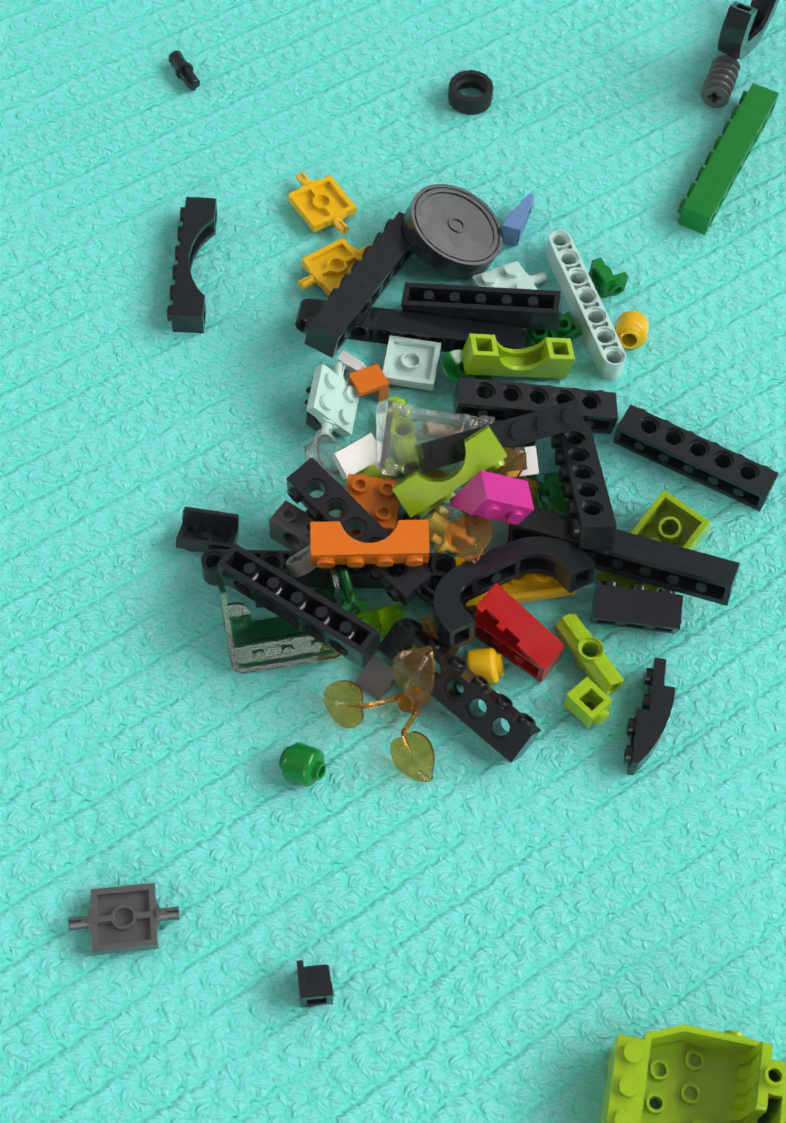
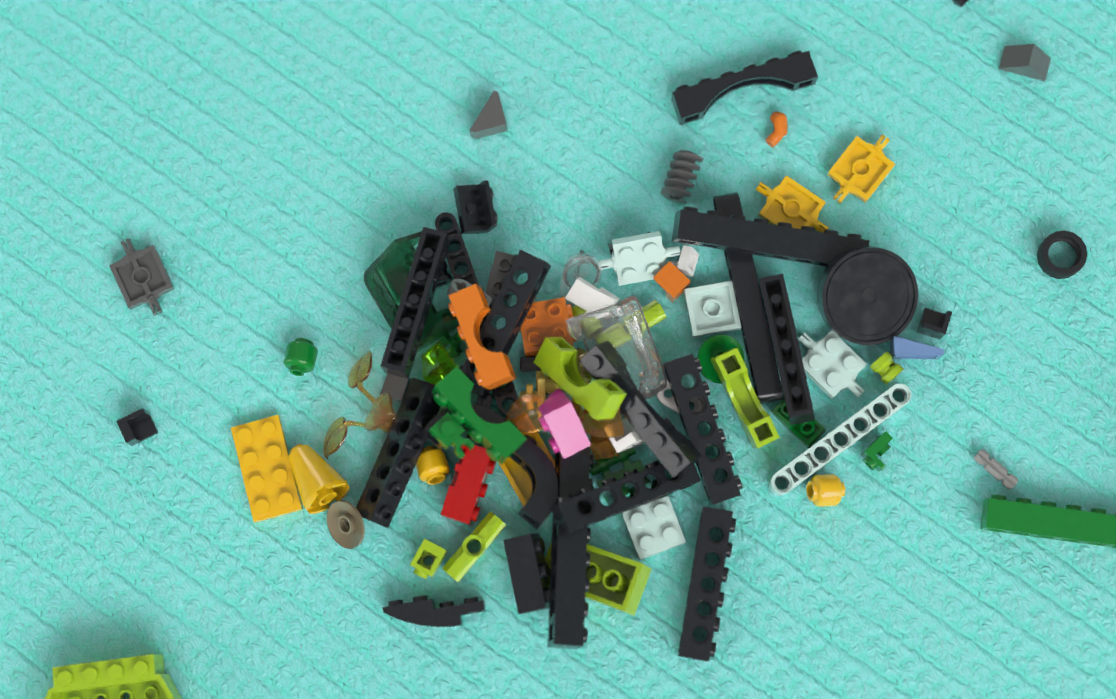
camera: 80 degrees right, 20 degrees up
(113, 485) = (490, 120): none -> dark grey slope
(242, 248) = (780, 128): none -> orange arm
(262, 341) = (680, 175): none -> dark grey piece
(275, 60) = (1025, 61): none -> dark grey slope
(421, 849) = (266, 468): none -> yellow plate
(426, 588) = (499, 439): none -> green arch
(454, 790) = (315, 479): none -> yellow cone
(467, 610) = (448, 432): none -> green plate
(501, 196) = (934, 323): none -> black panel
(526, 246) = (886, 368): none -> lime wheel
(527, 786) = (345, 524): none -> dark tan dish
(627, 485) = (653, 528): none -> light aqua plate
(653, 202) = (995, 469): none -> light grey axle

